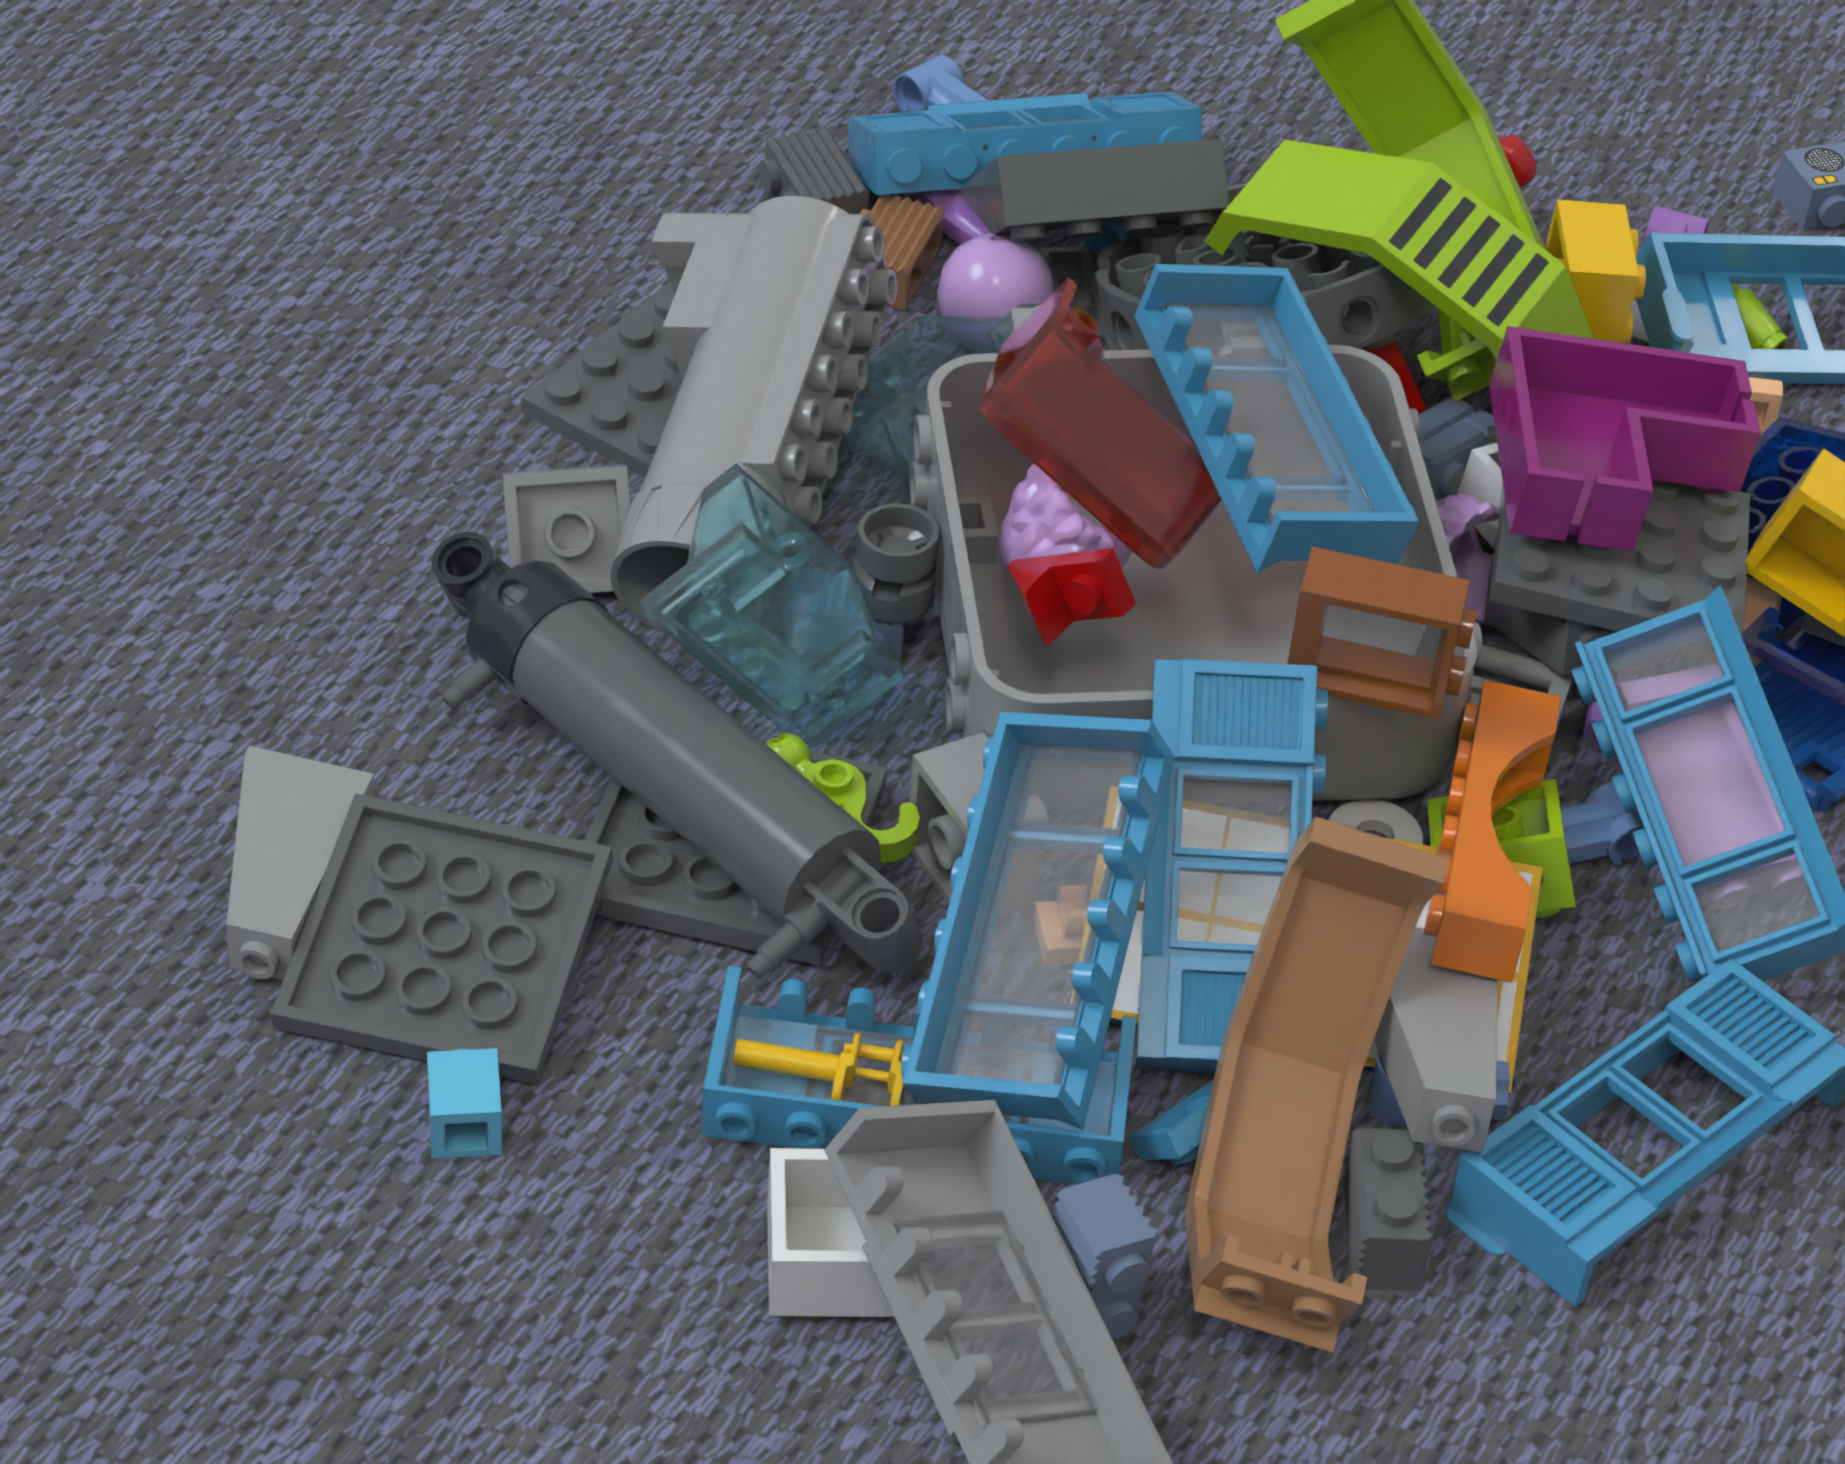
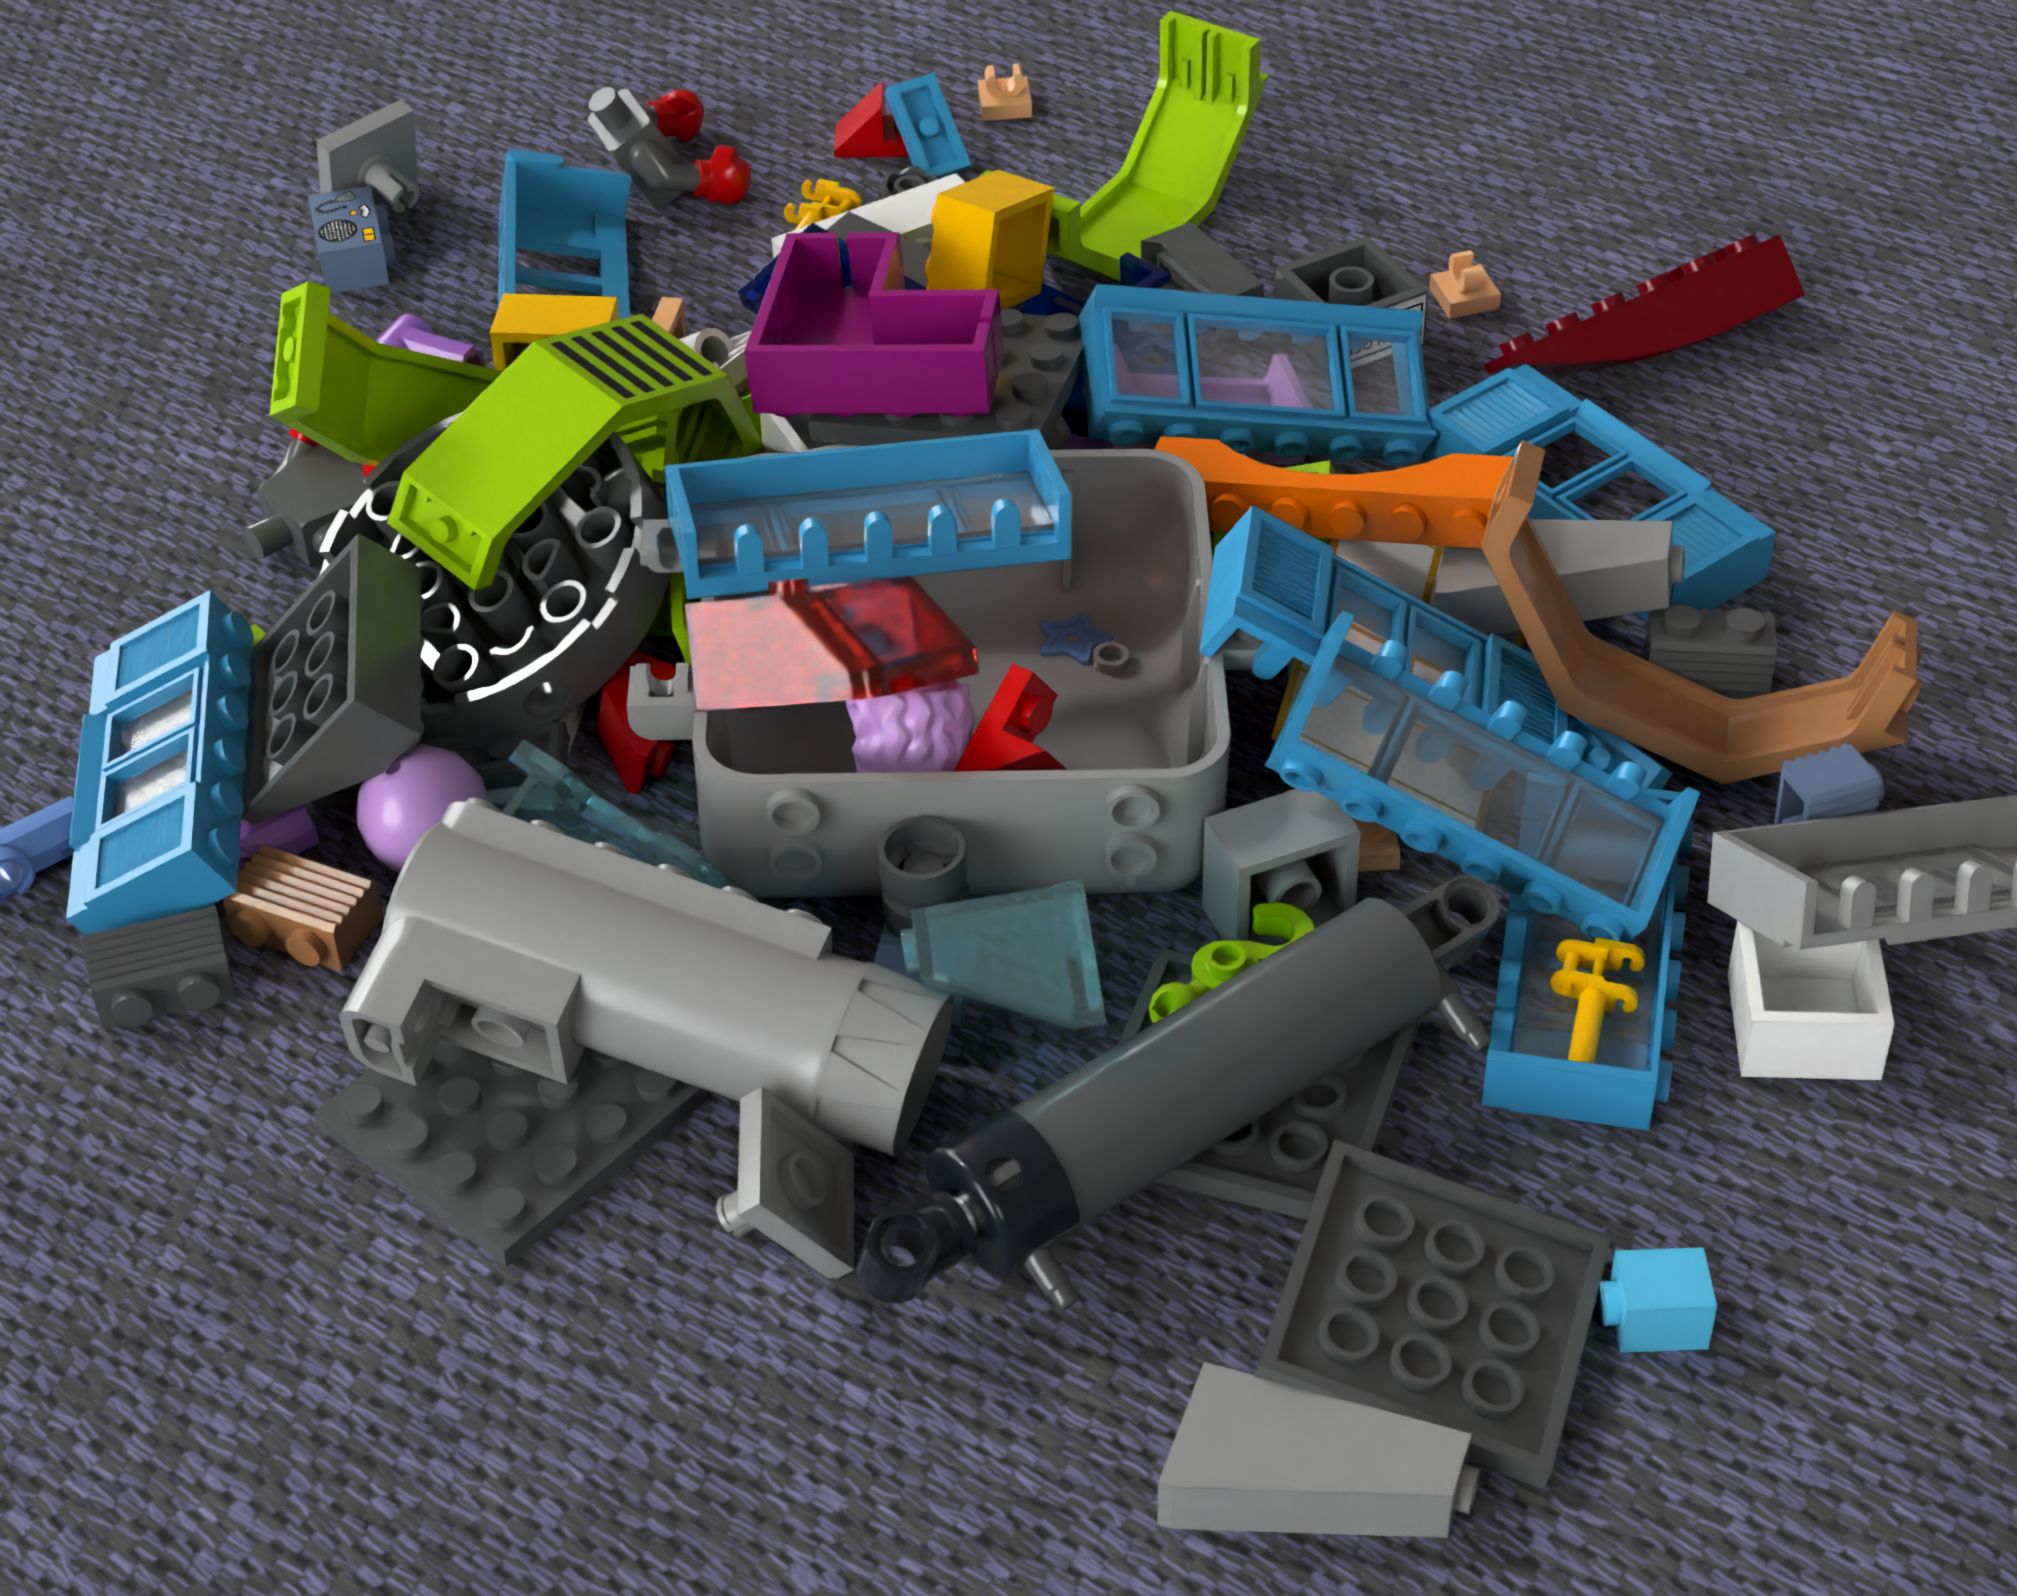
camera: 80 degrees left, 0 degrees up
(1388, 590) = (1195, 471): dark orange window -> none

